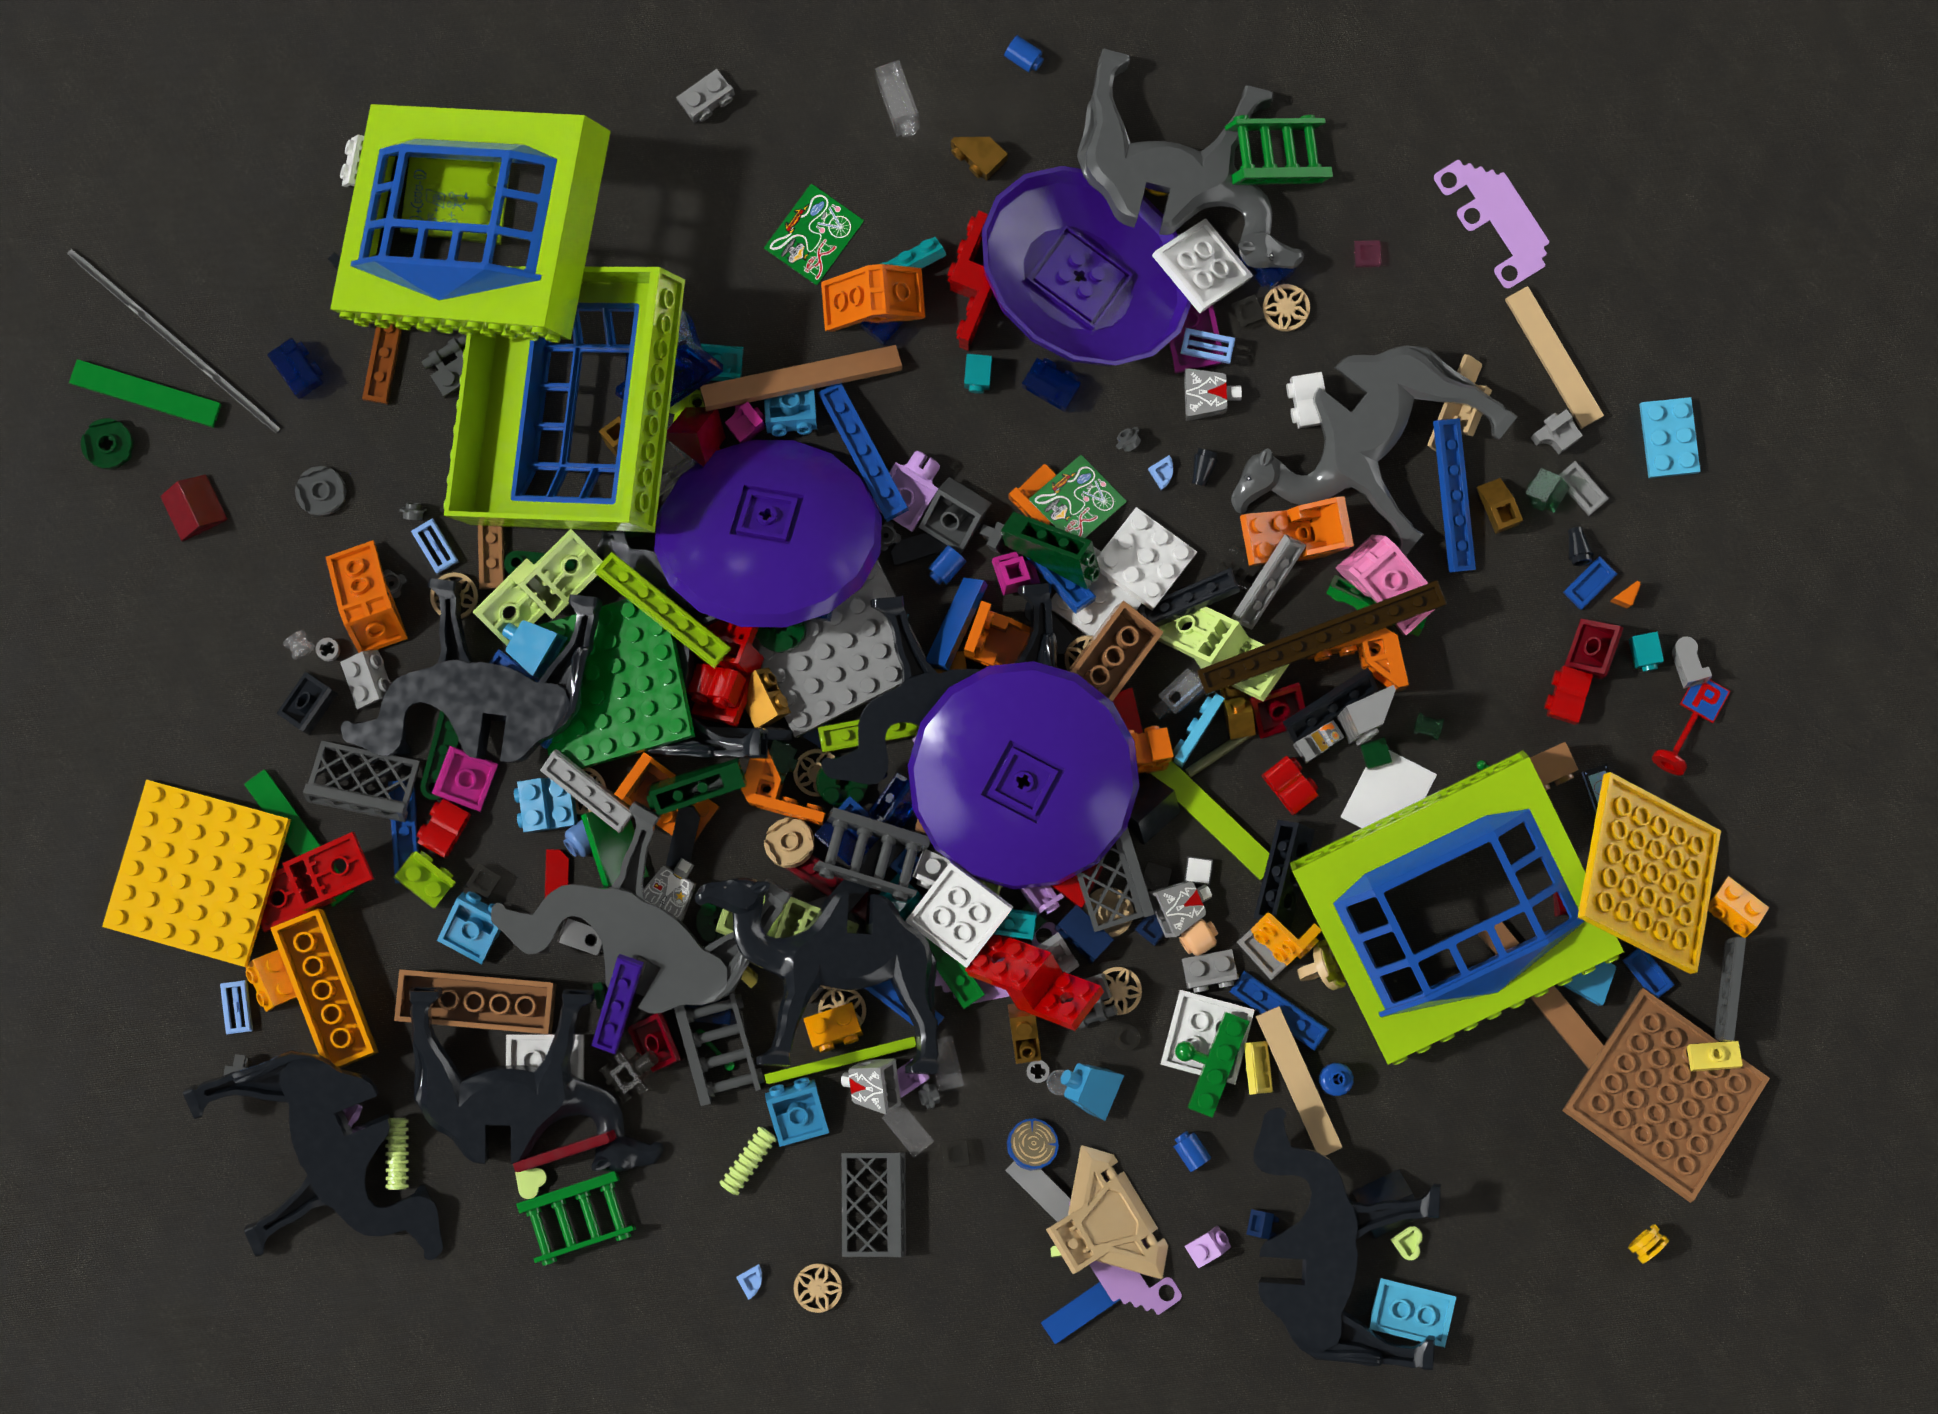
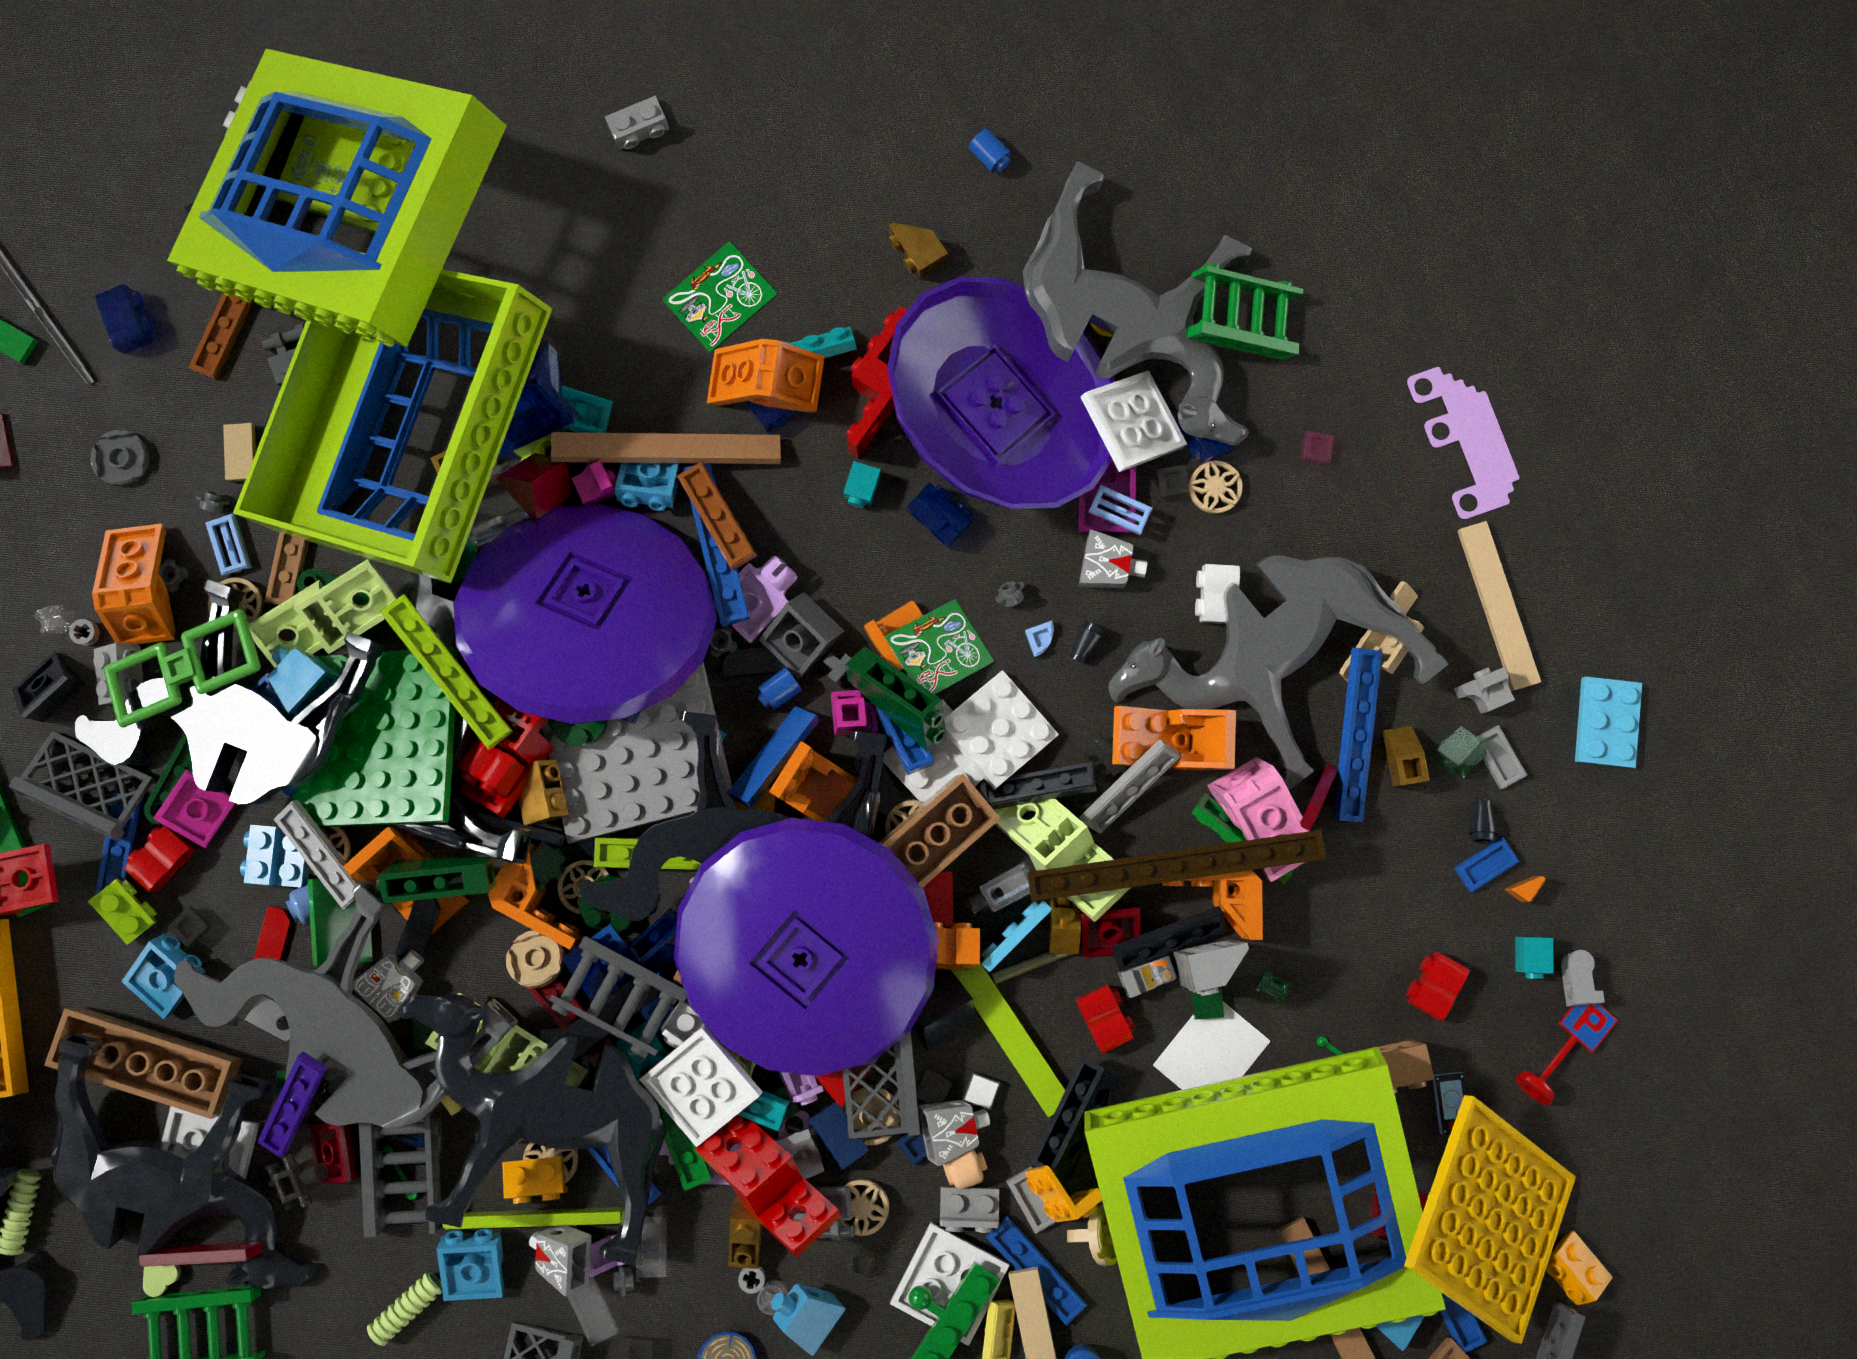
camera: 10 degrees right, 0 degrees up
(425, 463) = (238, 450): none -> tan tile
(429, 658) = (181, 668): none -> bright green bar
(859, 427) = (716, 516): none -> dark orange tile
(898, 99) = (841, 167): clear window -> none
(1431, 554) = (1318, 797): none -> dark red tile
(1594, 647) = (1477, 939): dark red slope -> none

